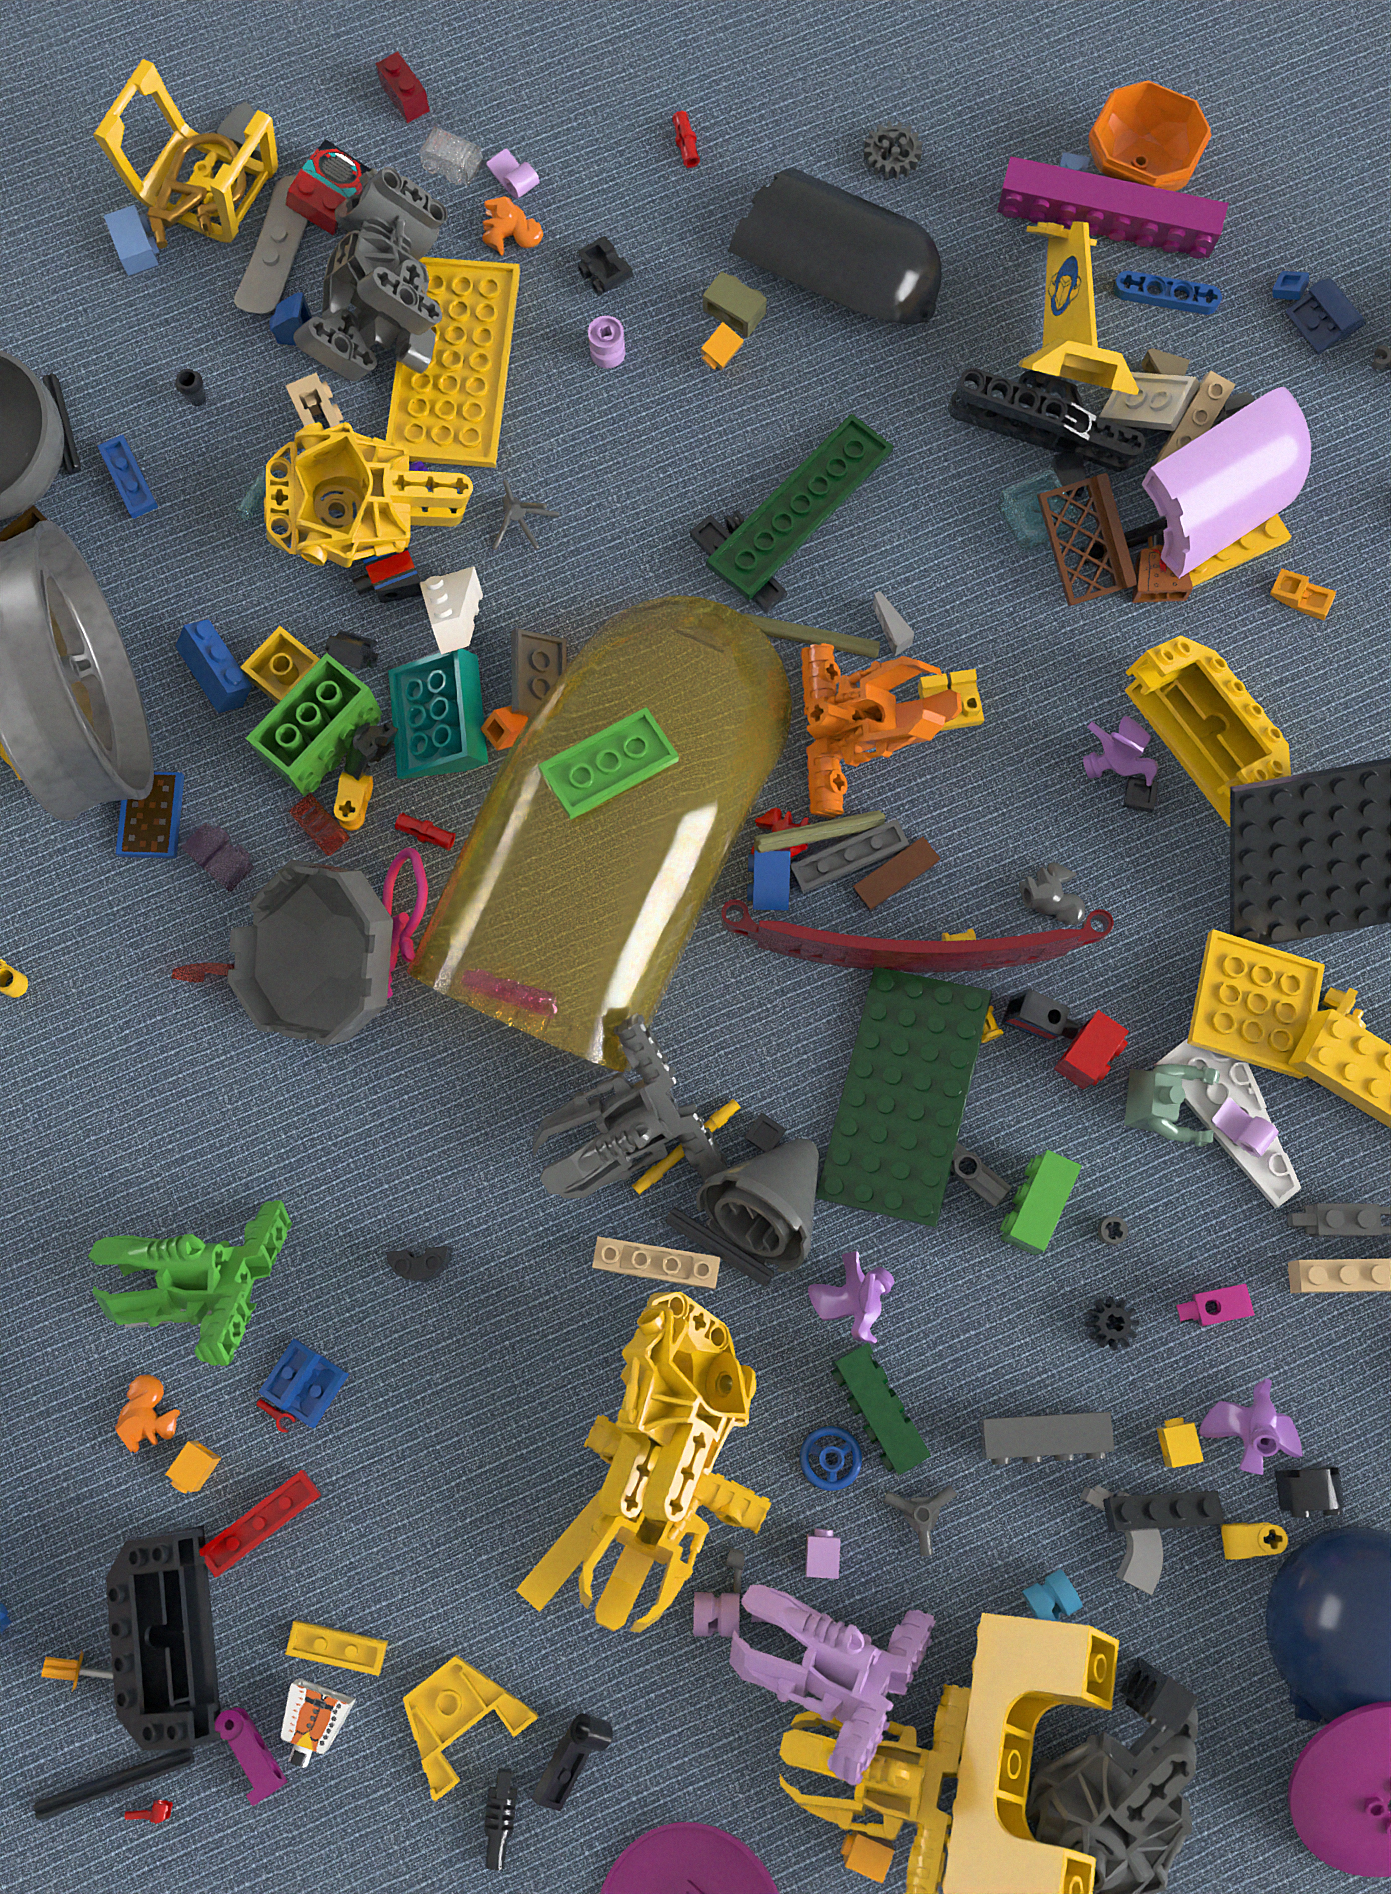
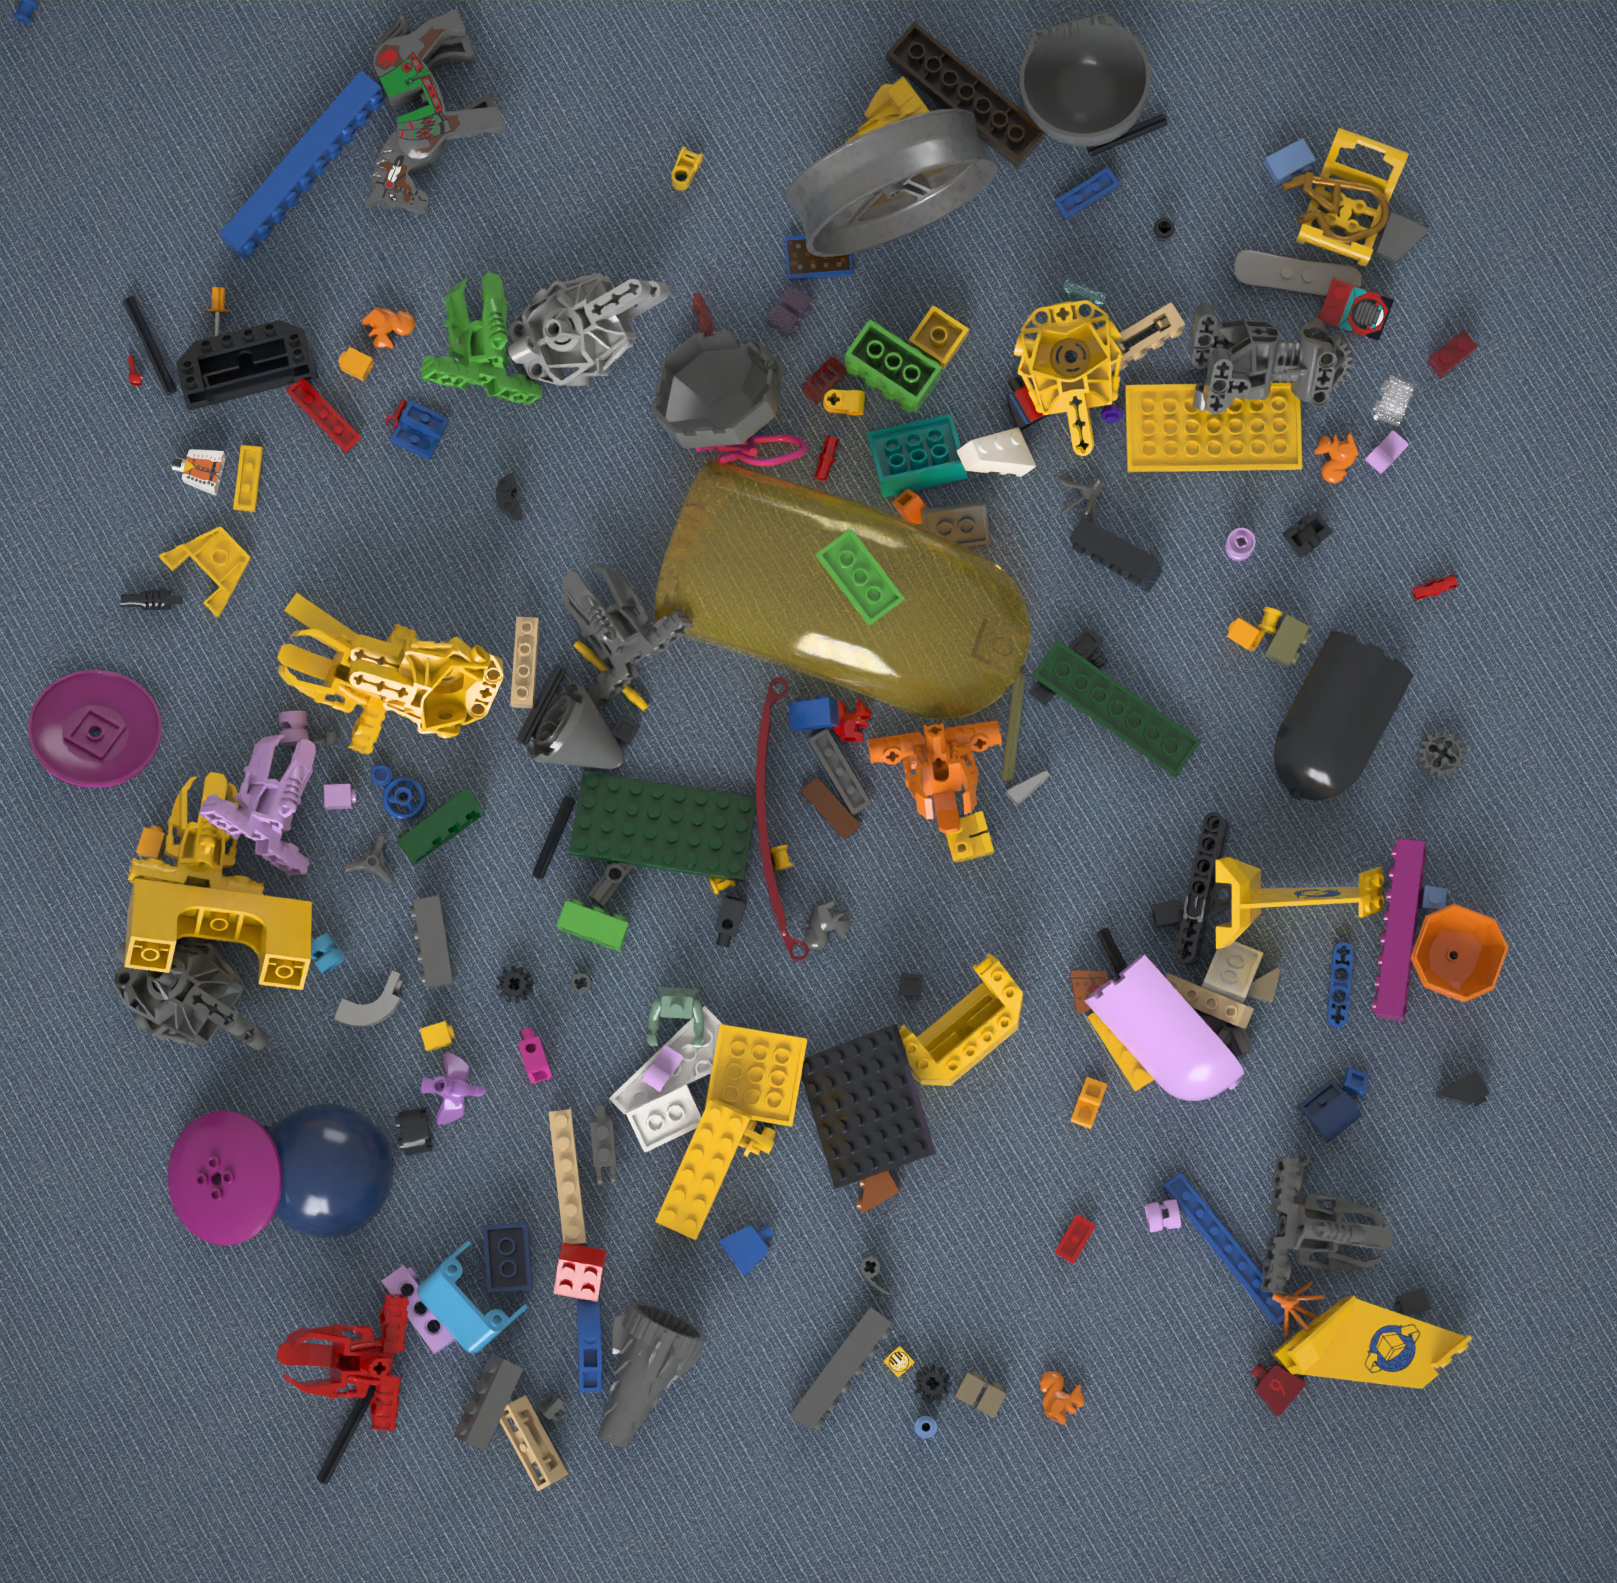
camera: 80 degrees right, 5 degrees up
(196, 1103) = (600, 325): none -> light grey piece
(213, 666) = (936, 284): blue brick -> none
(251, 1753) = (176, 432): magenta leg -> none
(288, 317) = (1229, 298): blue slope -> none
(352, 650) = (955, 384): black cylinder -> none
(368, 745) = (885, 407): black cylinder -> none
(510, 992) = (692, 531): clear pink wing -> none
(569, 1758) = (192, 641): black plate -> none
(601, 485) = (1116, 554): none -> black wedge
(705, 320) = (1270, 620): none -> yellow bush
(795, 1488) = (381, 774): none -> blue plate
(818, 831) = (851, 745): olive axle -> none
(856, 1298) = (514, 803): medium lavender animal -> none
(906, 1249) = (553, 838): none -> black axle
(1023, 513) = (1131, 890): clear light blue brick -> none
(1091, 1049) = (707, 955): red brick -> none
(1107, 526) = (1109, 946): reddish brown fence -> none
(1121, 752) = (940, 965): medium lavender animal -> none
(1157, 1697) = (270, 1017): black brick -> none
(1163, 1511) = (389, 1024): black plate -> none
(1247, 1540) = (377, 1085): yellow piece -> none
(1303, 166) = (1466, 1091): none -> black slope
(1308, 1132) = (664, 1117): none -> white plate

